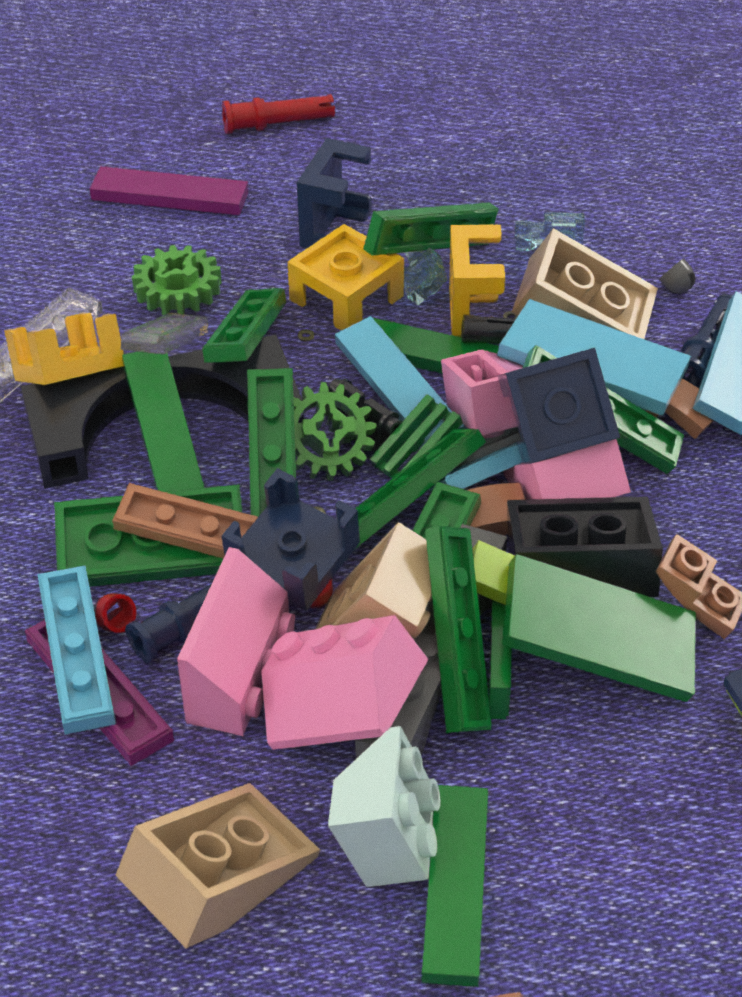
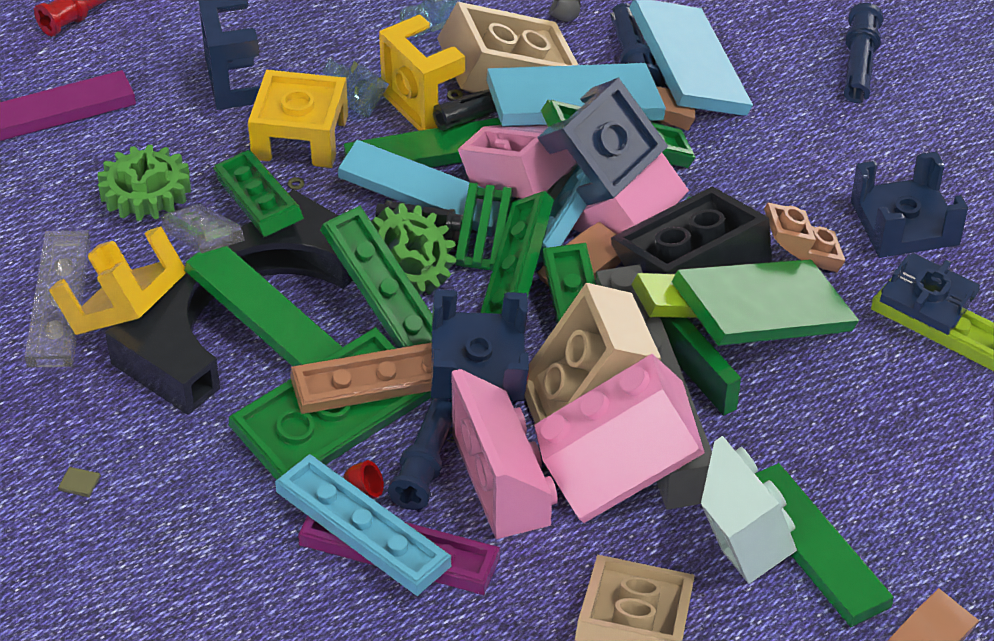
camera: 35 degrees left, 0 degrees up
(422, 227) = (345, 43): green tile -> none
(458, 629) = (678, 349): green tile -> none

